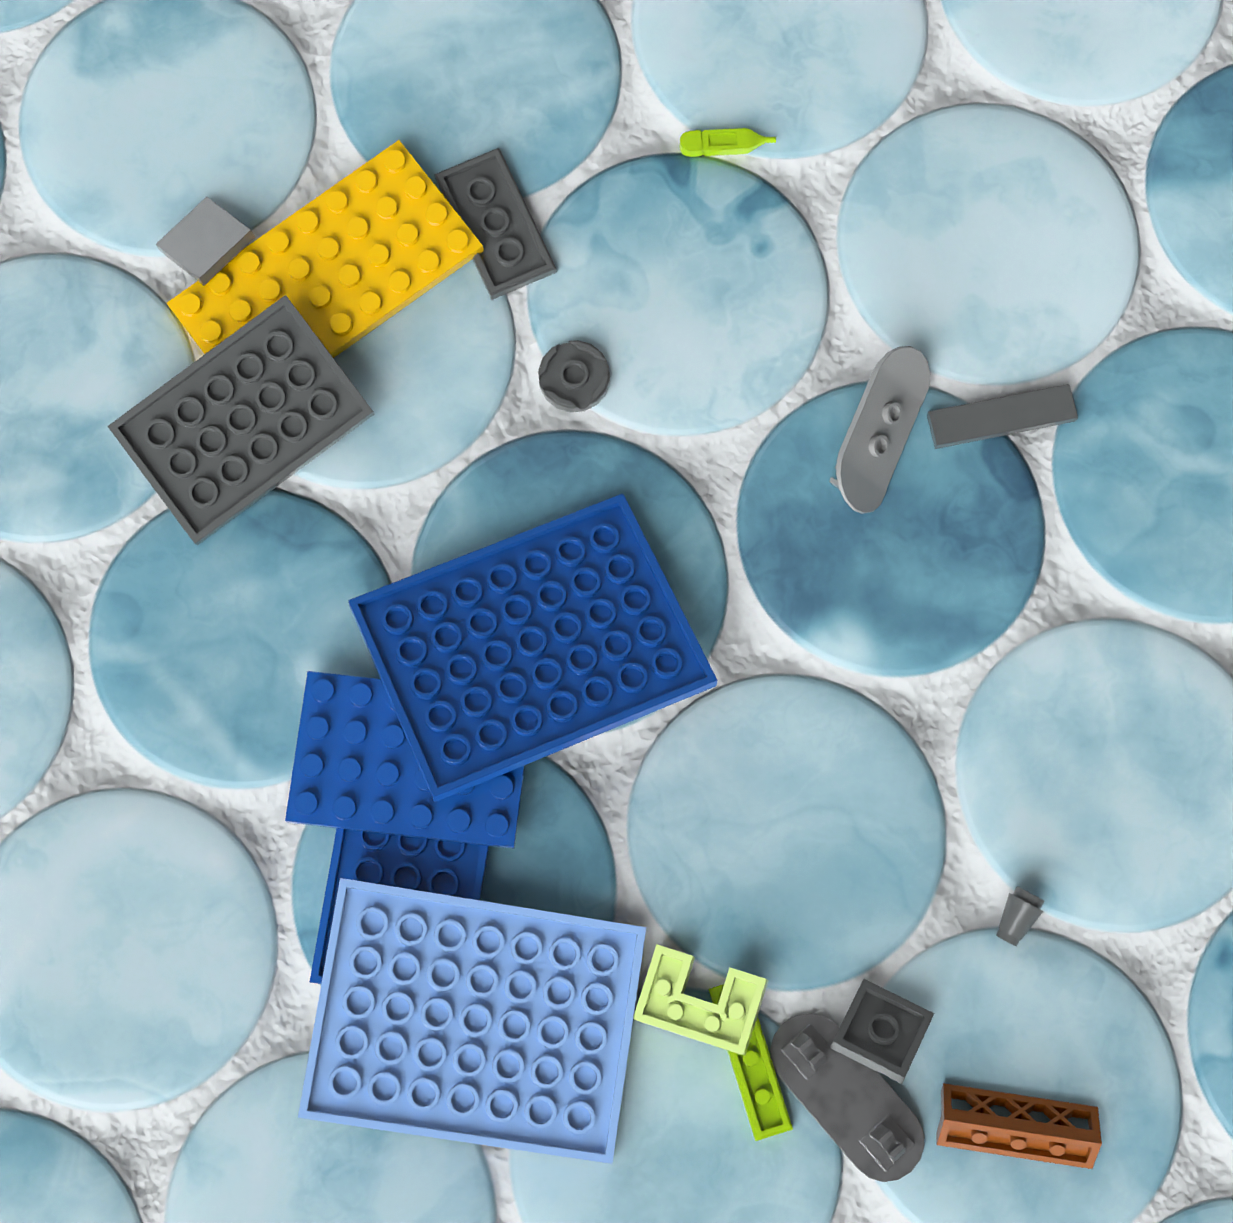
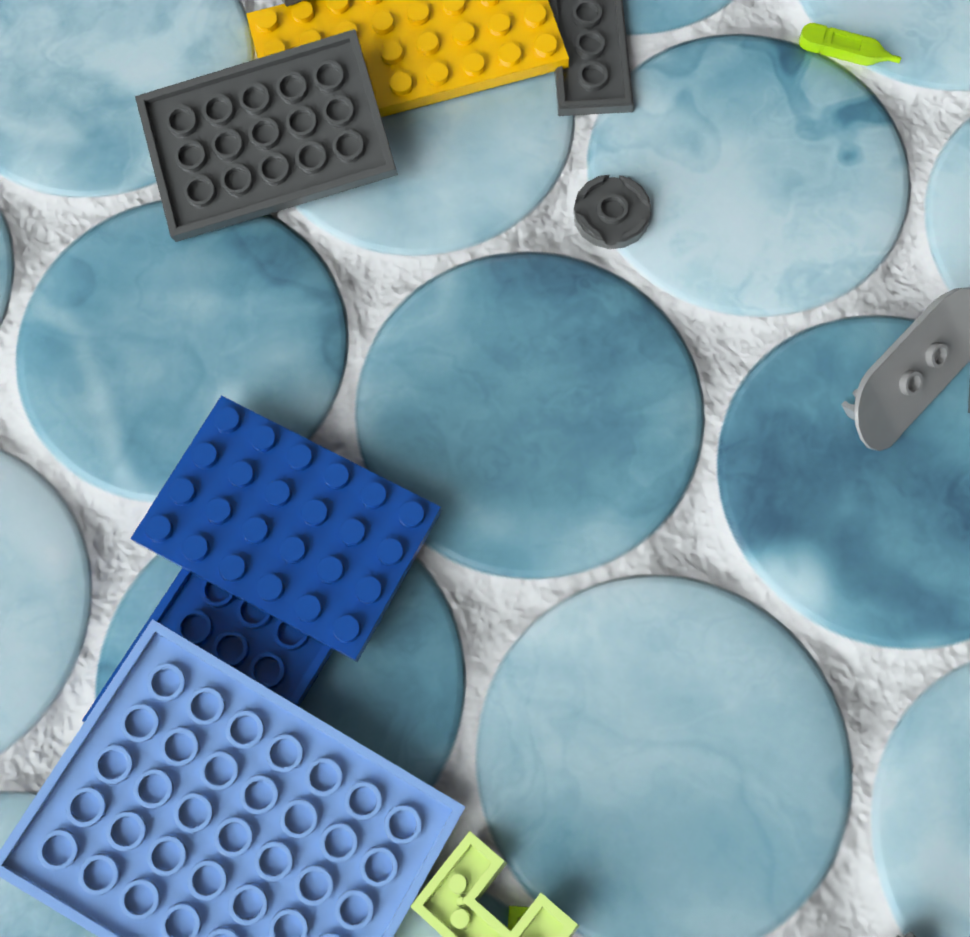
camera: 25 degrees right, 5 degrees down
(530, 646) = (459, 457): blue plate -> none

